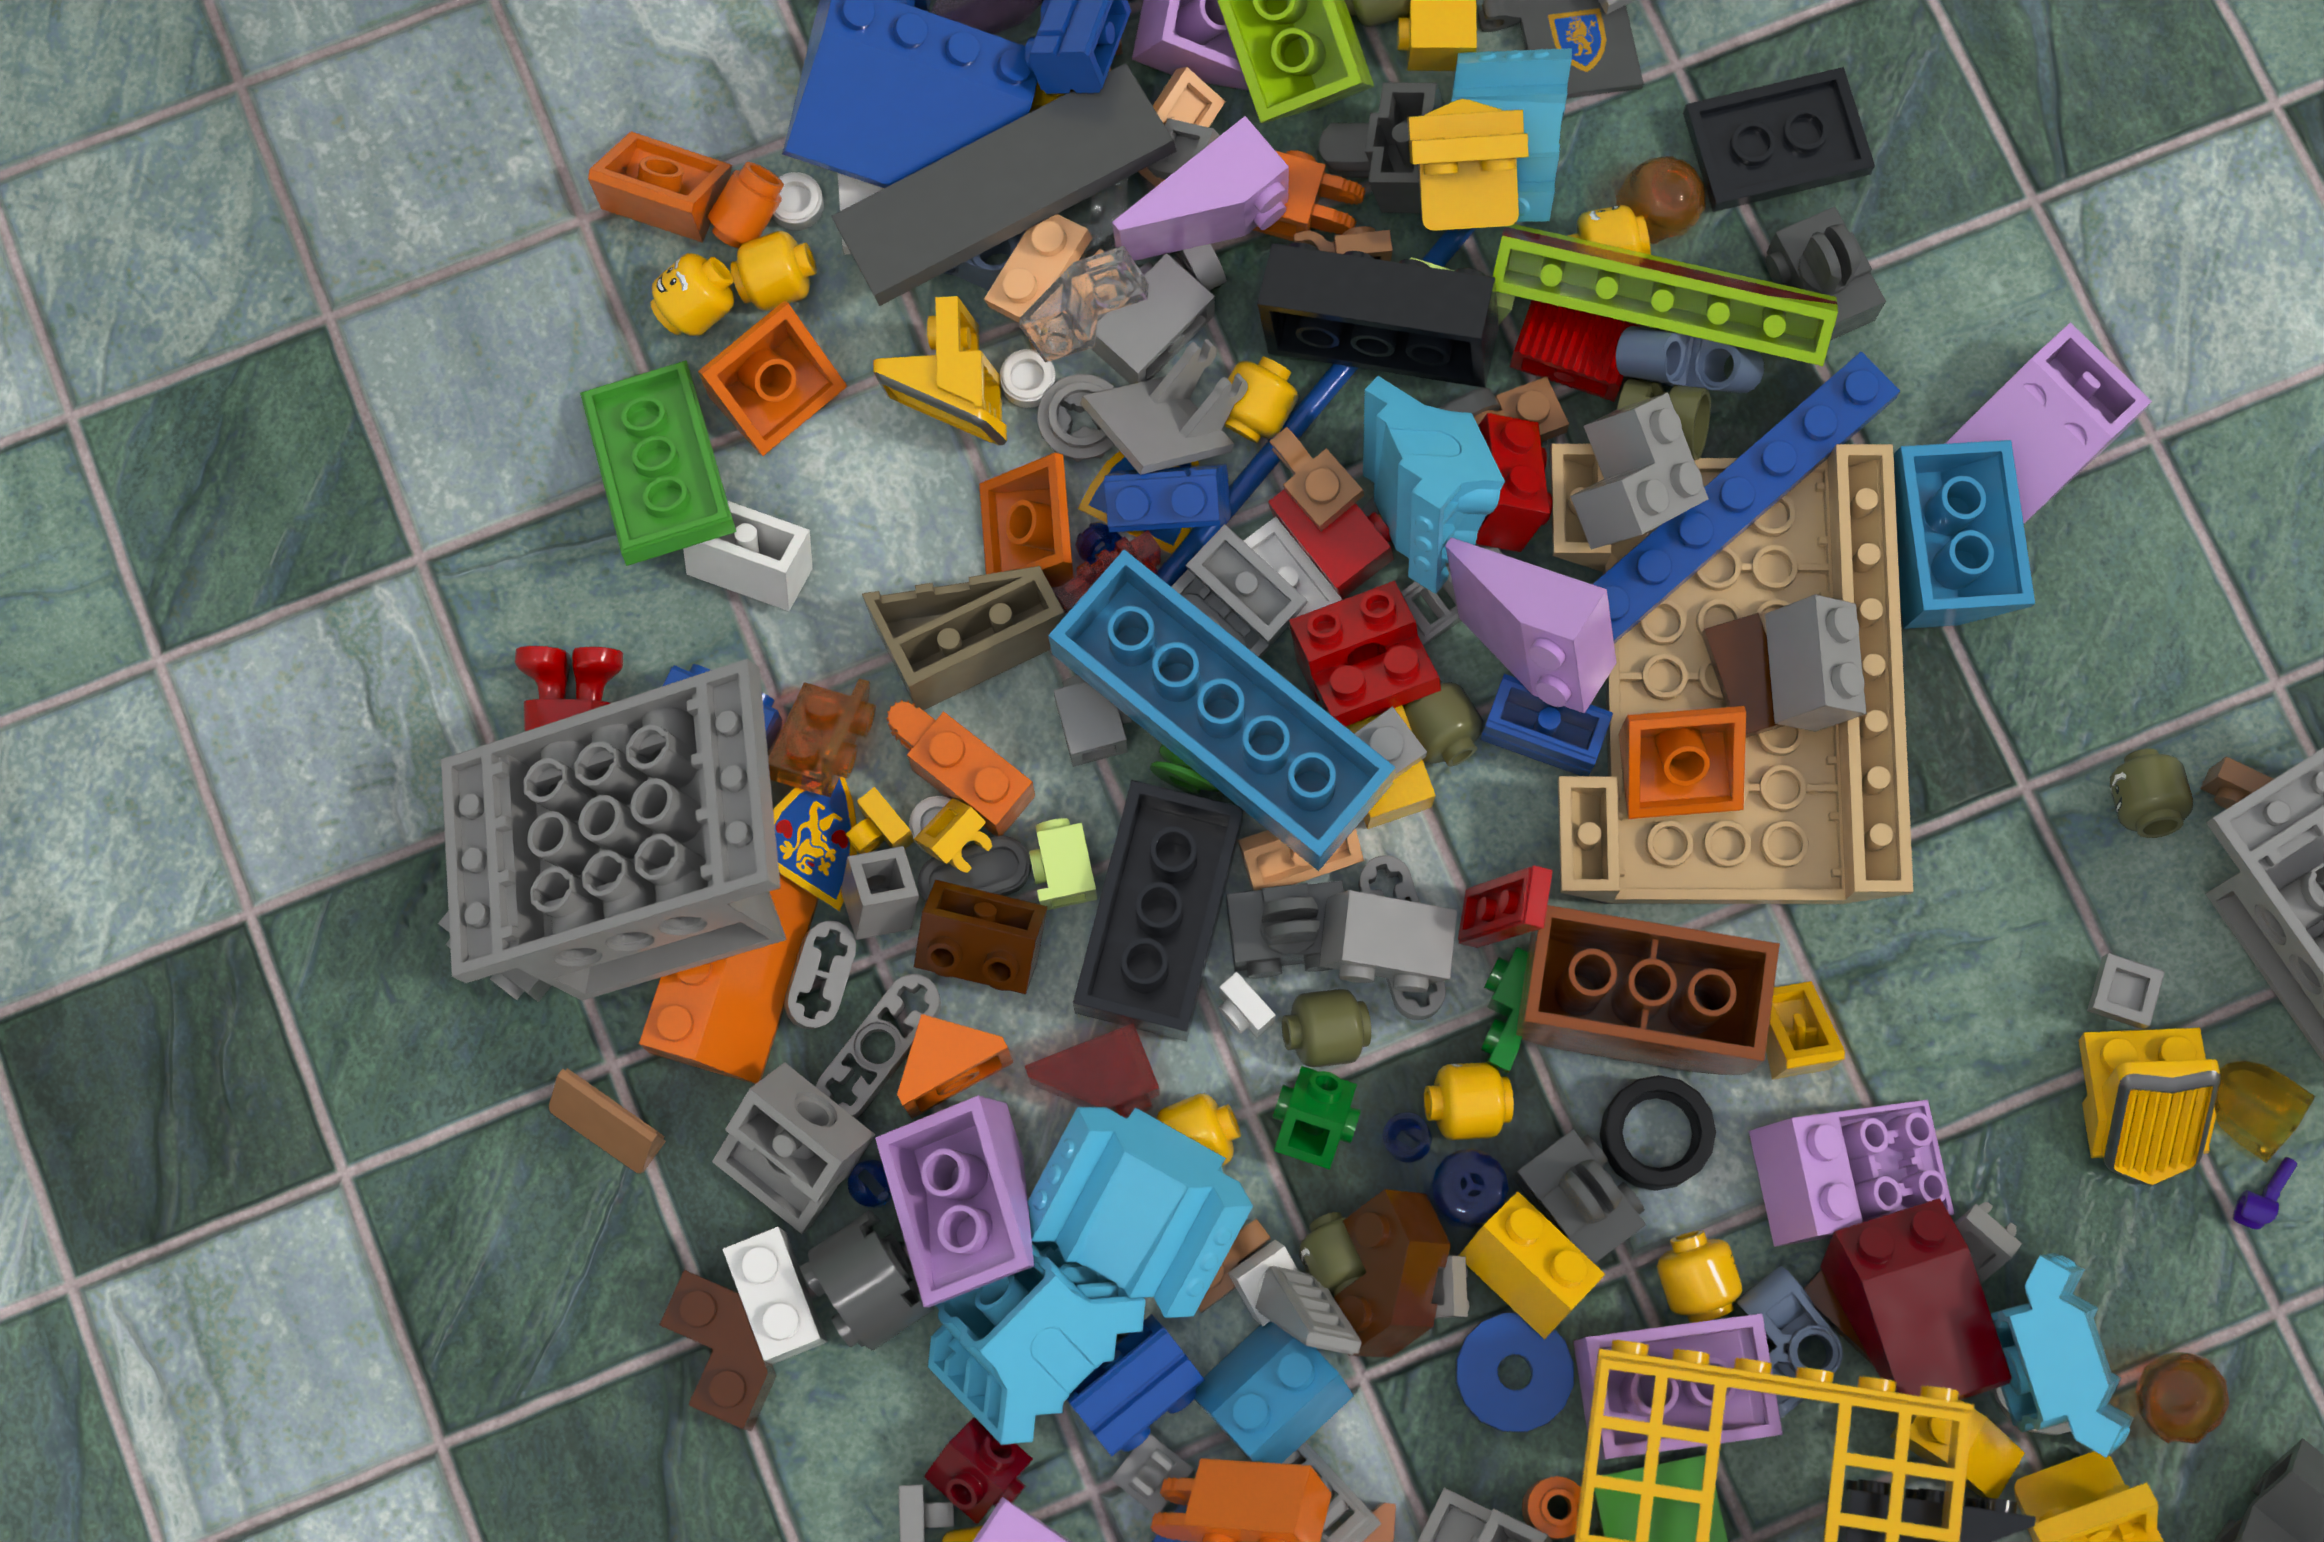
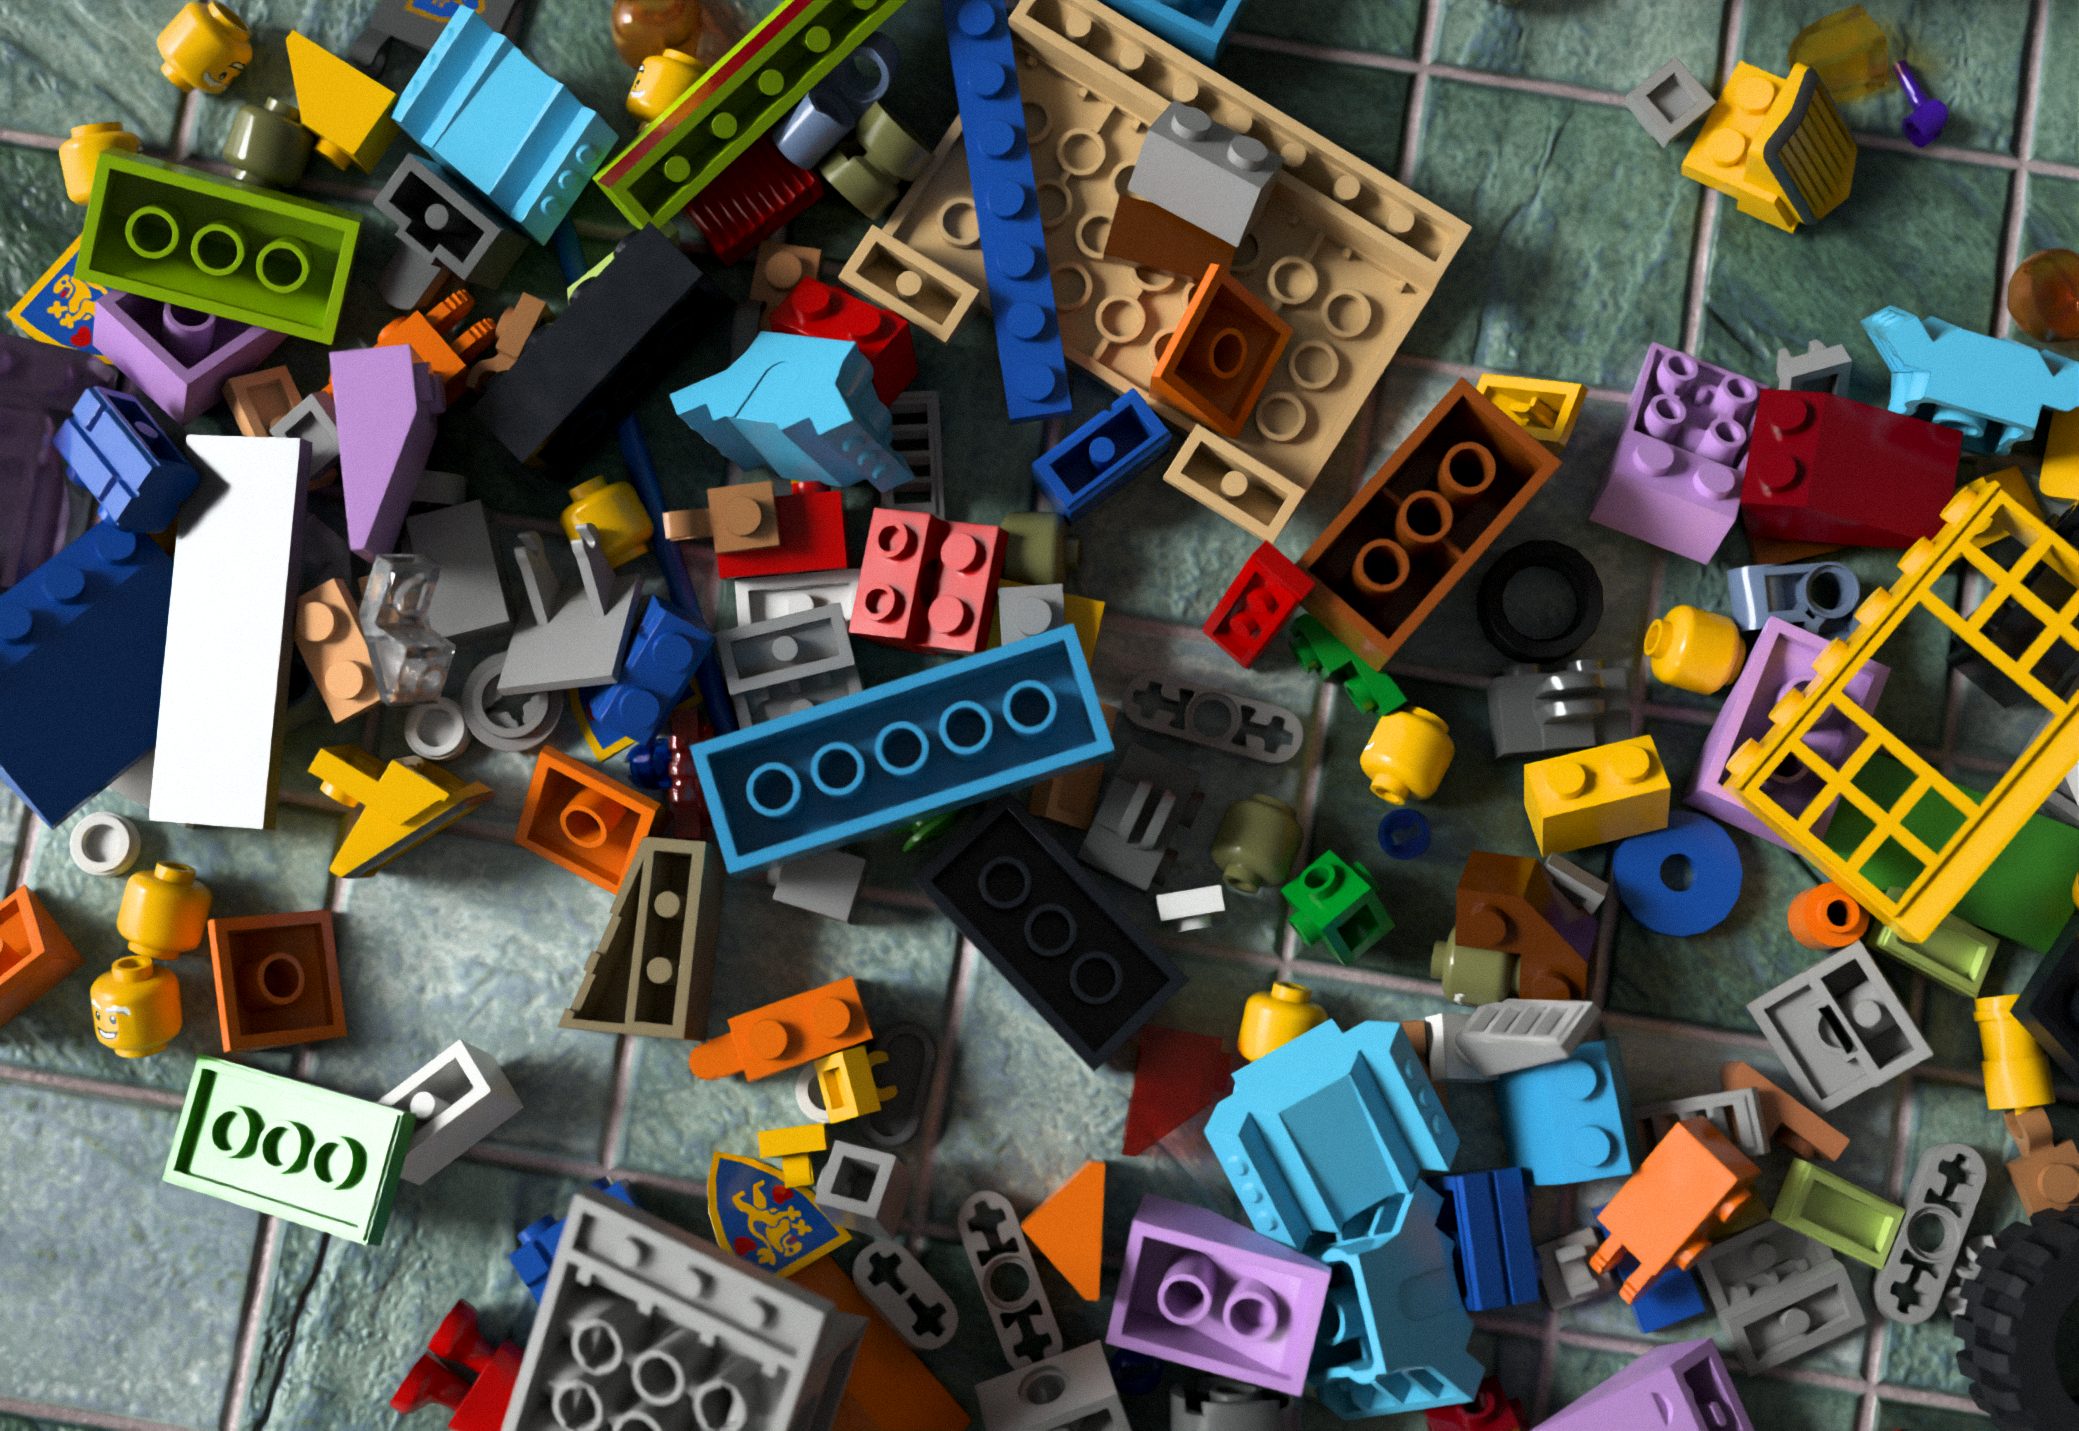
camera: 60 degrees left, 5 degrees up
(745, 205) = (78, 897): orange brick -> none
(820, 737) = (670, 1154): clear orange bracket -> none
(980, 937) = (968, 1119): reddish brown brick -> none
(1062, 864) = (943, 994): yellowish green brick -> none
(1388, 939) = (1217, 734): light grey brick -> none
(1456, 1205) = (1467, 805): clear blue head -> none
(1468, 164) = (514, 173): yellow piece -> none
(1536, 622) = (1009, 403): lavender slope -> none
(1644, 473) = (927, 207): light grey brick -> none

